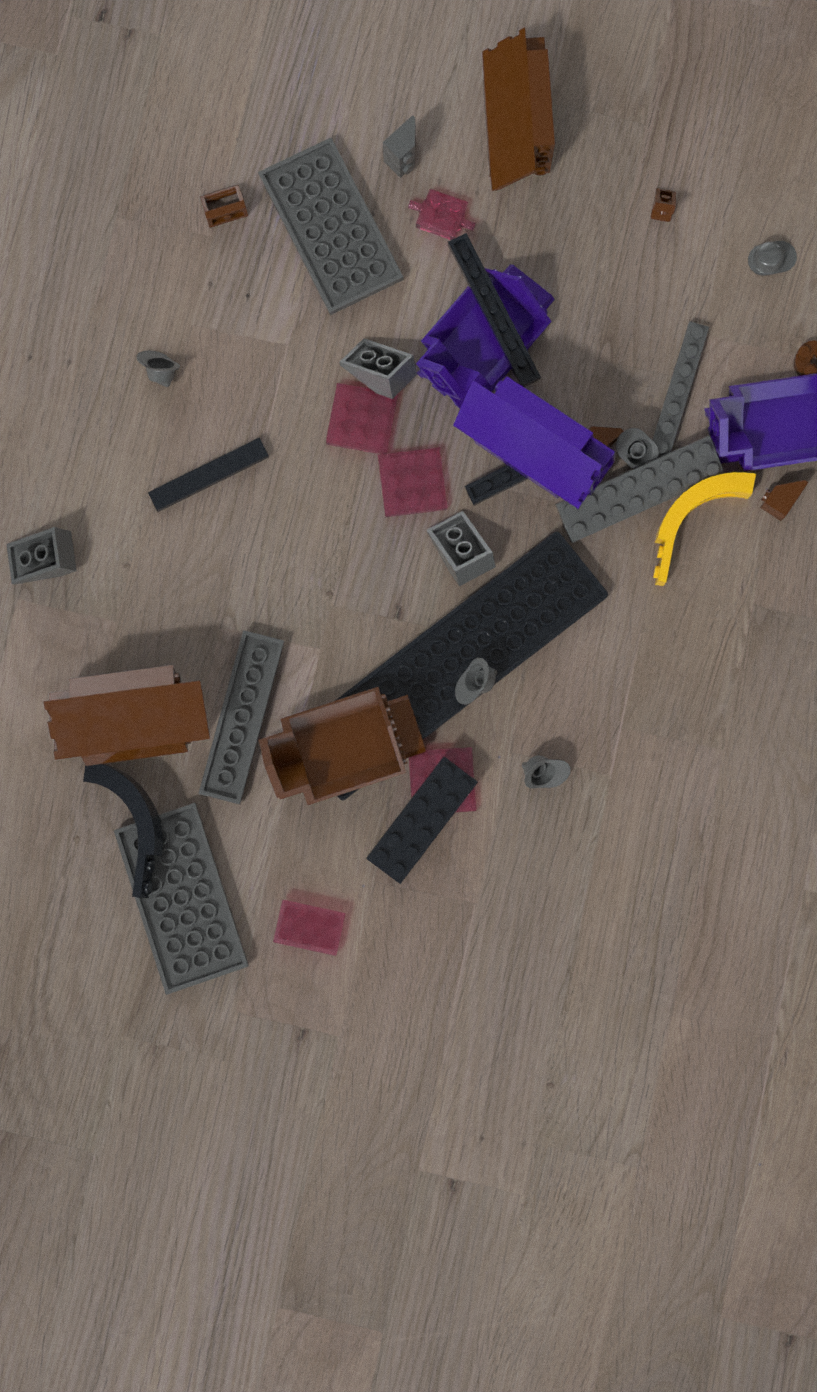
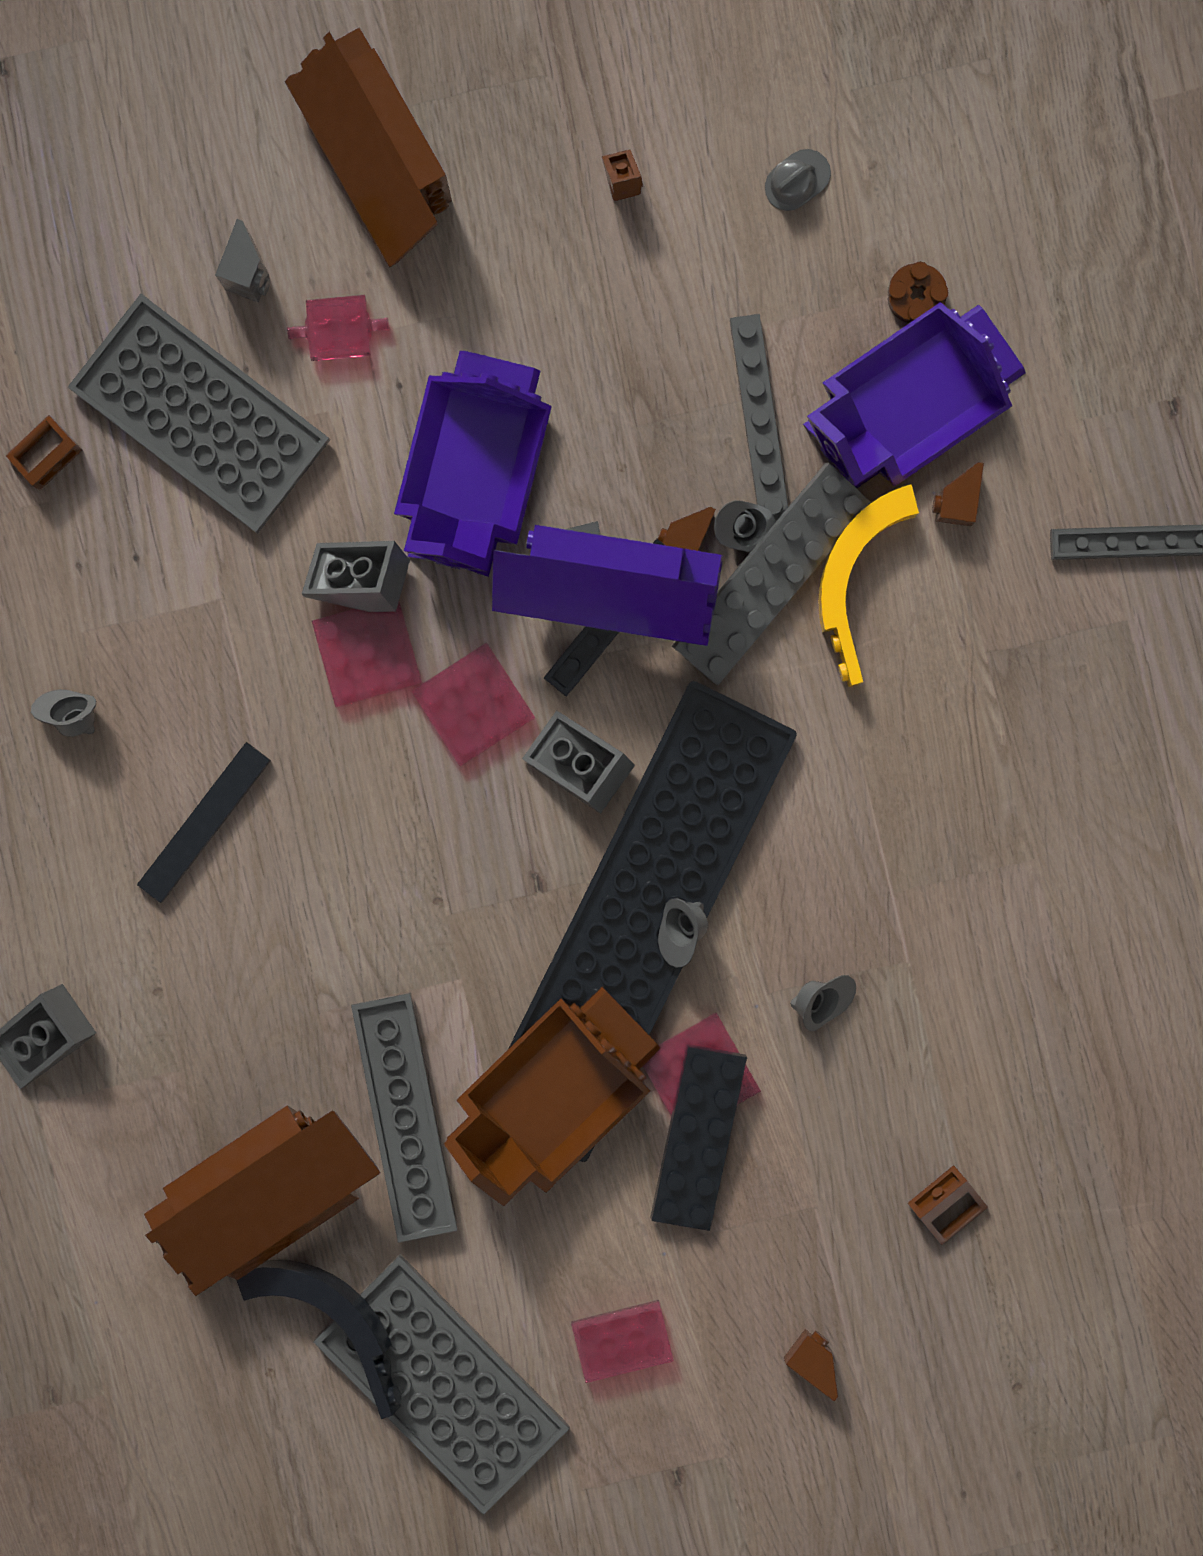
camera: 30 degrees left, 5 degrees up
(426, 1001) = (814, 1362): none -> reddish brown slope
(494, 310) = (470, 429): black plate -> none
(559, 934) = (942, 1195): none -> reddish brown tile

